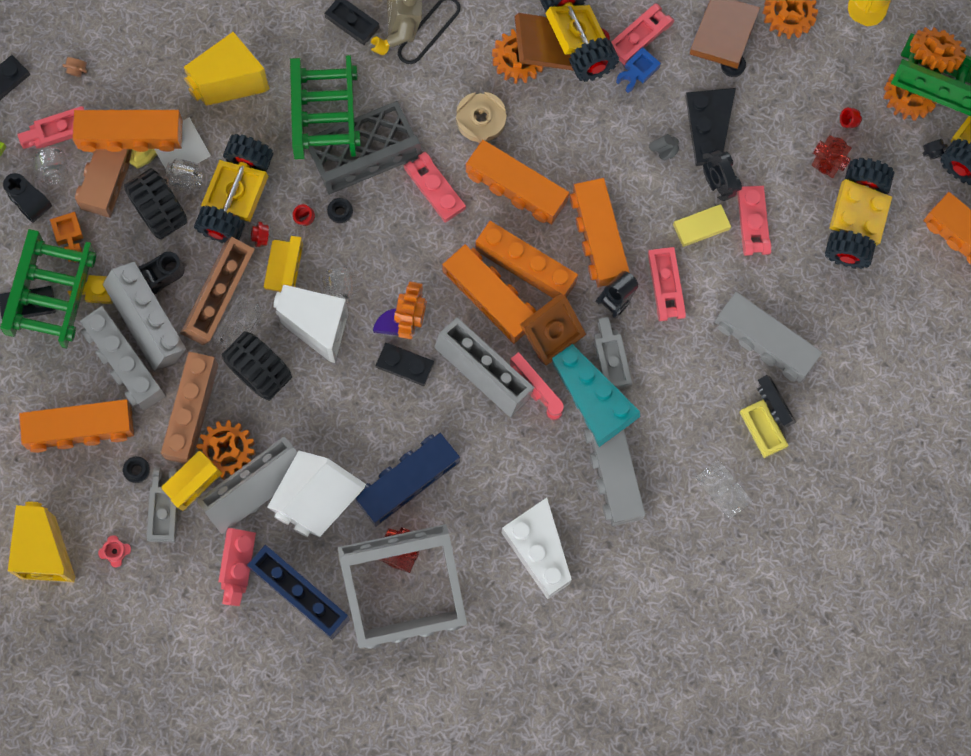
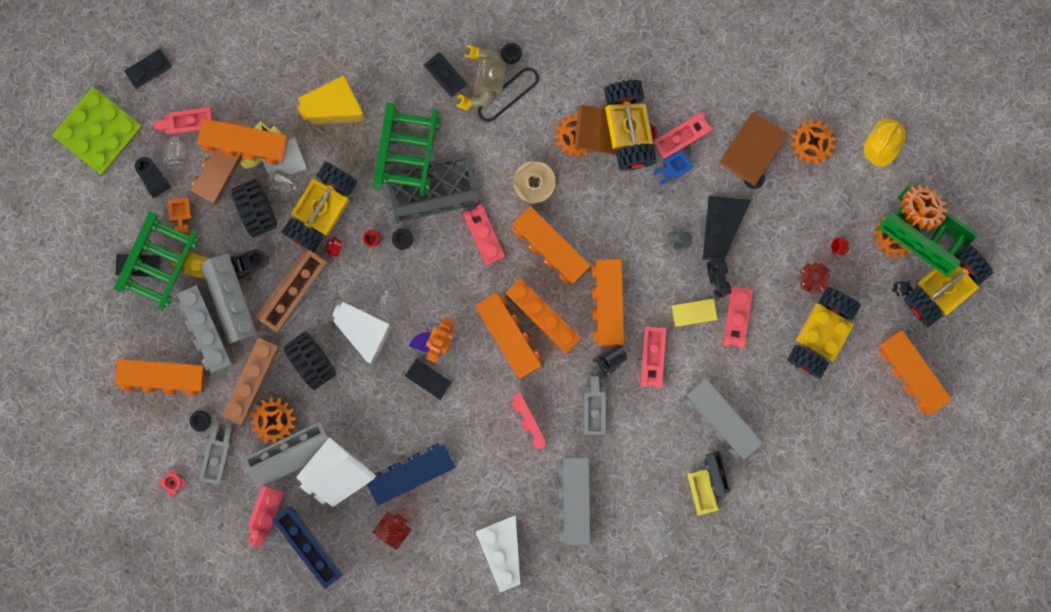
camera: 15 degrees right, 10 degrees up
(38, 546) = (115, 469): yellow slope -> none
(75, 66) = (210, 69): nougat plate -> none
(191, 480) = (241, 441): yellow panel -> none
(283, 264) = (347, 276): yellow panel -> none
(394, 546) = (388, 532): light grey window -> none
(483, 367) = (489, 397): light grey brick -> none
(553, 328) = (552, 378): dark orange plate -> none
(599, 401) = (572, 441): teal wing -> none

